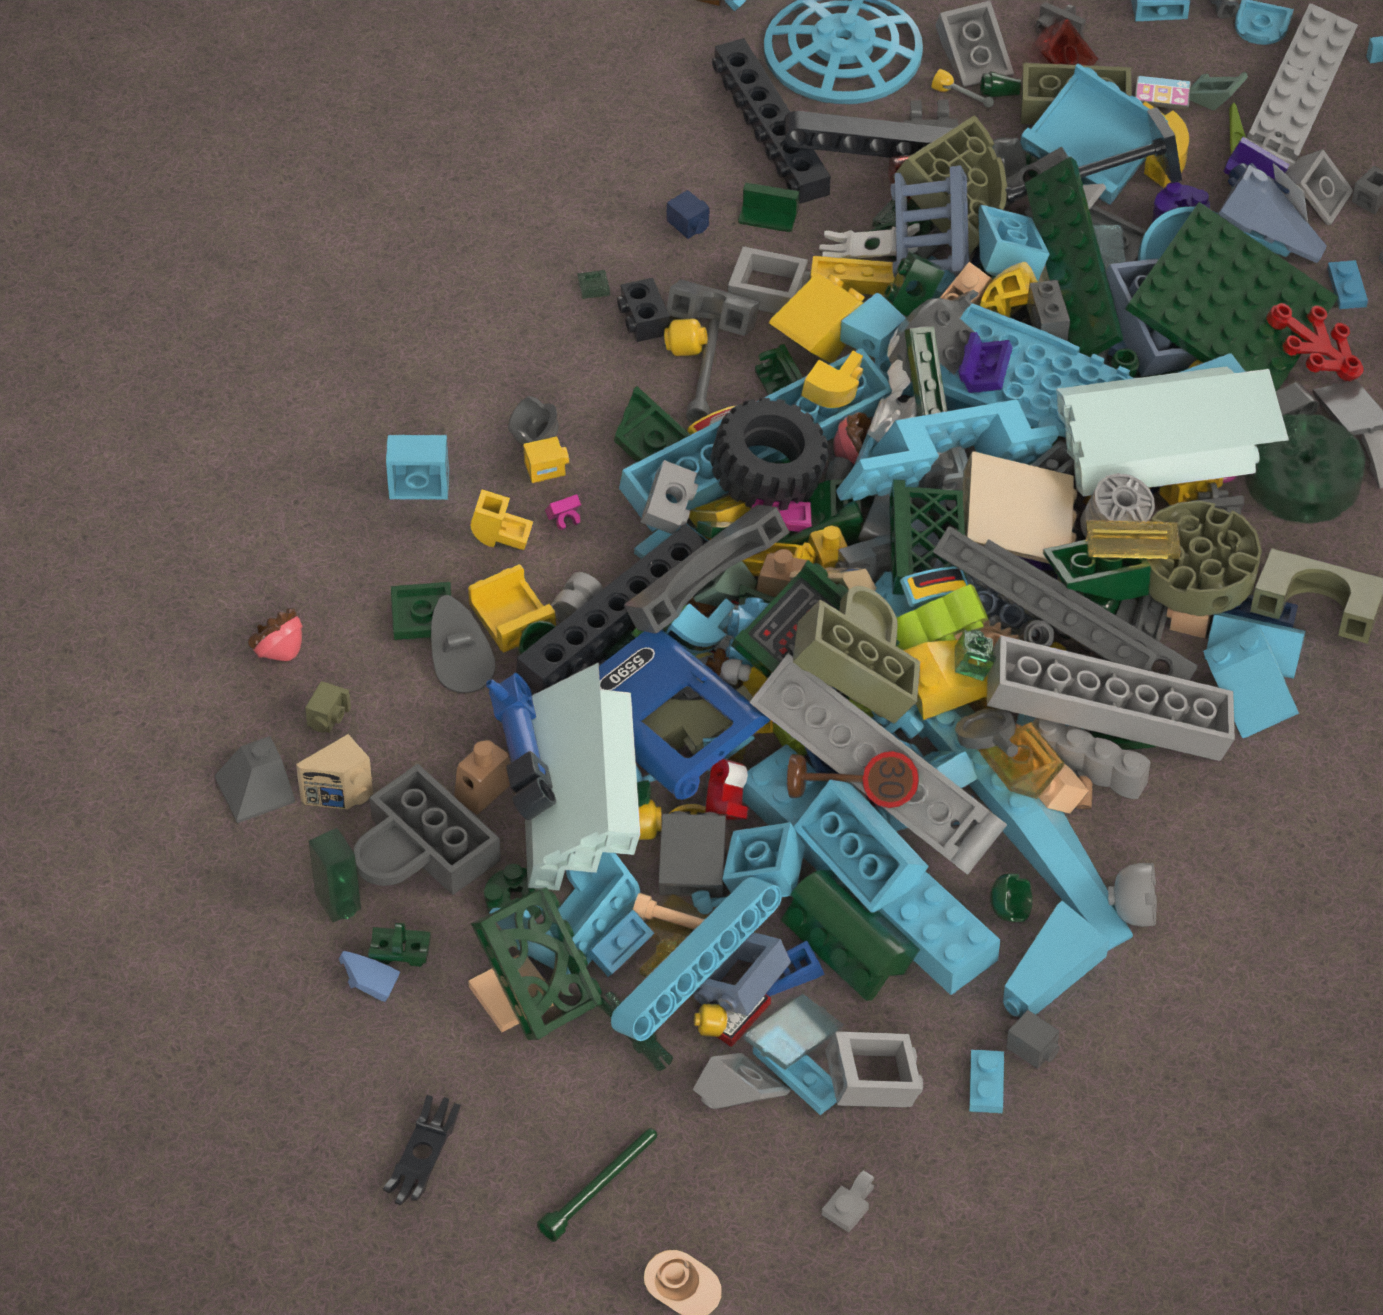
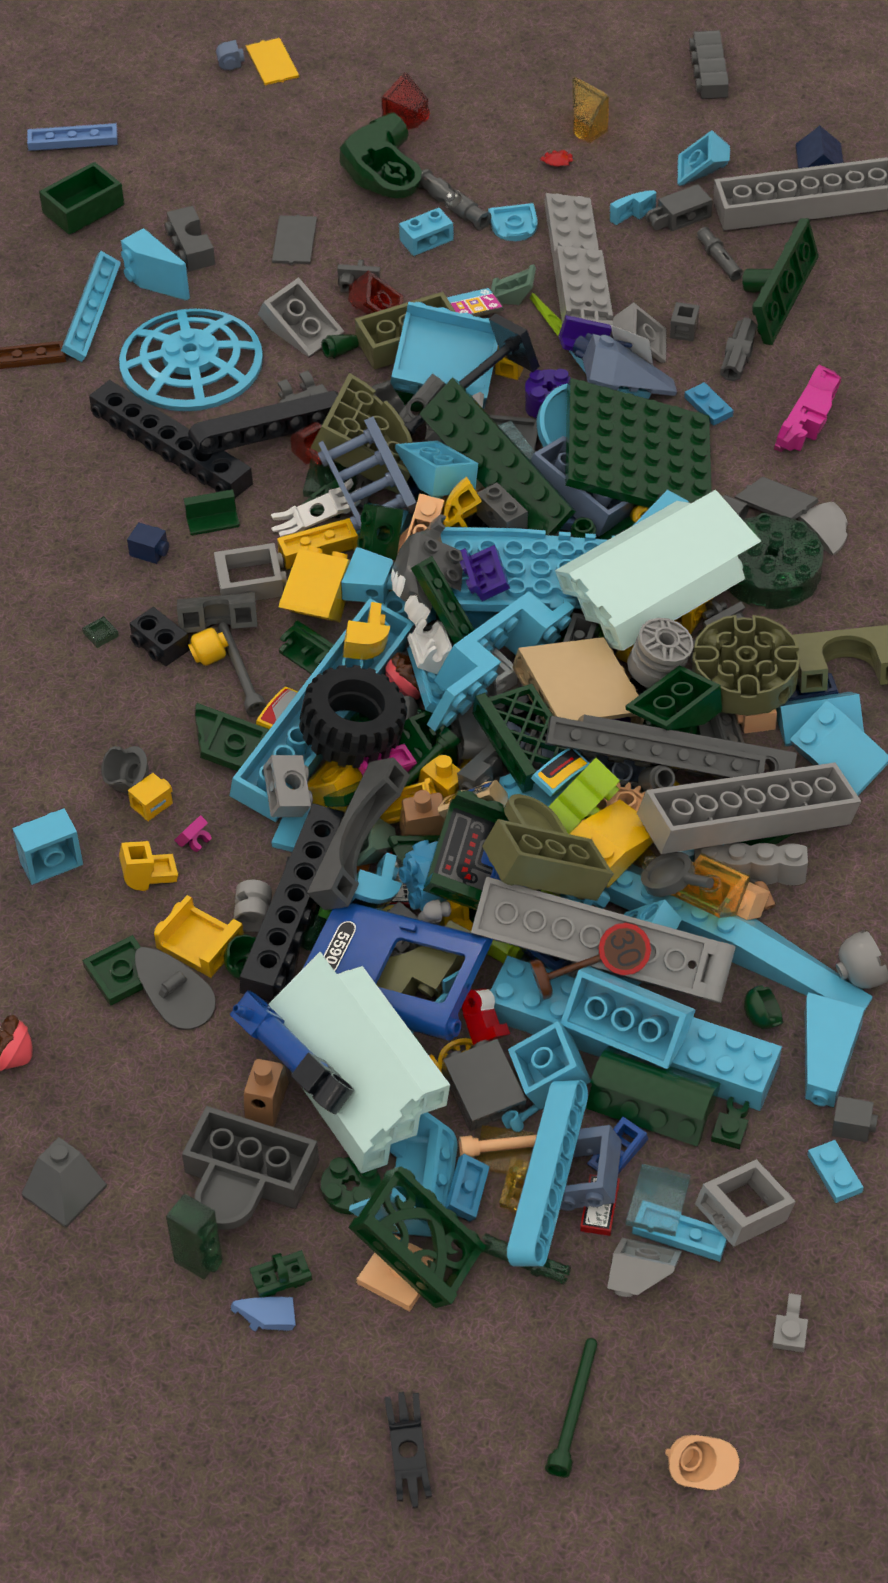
camera: 25 degrees left, 0 degrees up
(327, 707) = (89, 1089): olive brick -> none
(336, 776) = (138, 1147): tan slope -> none
(711, 1020) = (583, 1220): yellow piece -> none
(717, 661) = (408, 908): reddish brown plant -> none
(911, 997) = (731, 1127): none -> dark green plate
(944, 82) = (293, 359): hinge -> none
(975, 646) = (627, 810): clear green brick -> none
(1132, 539) = (693, 669): clear yellow piece -> none
(1342, 361) = (748, 466): red plant -> none

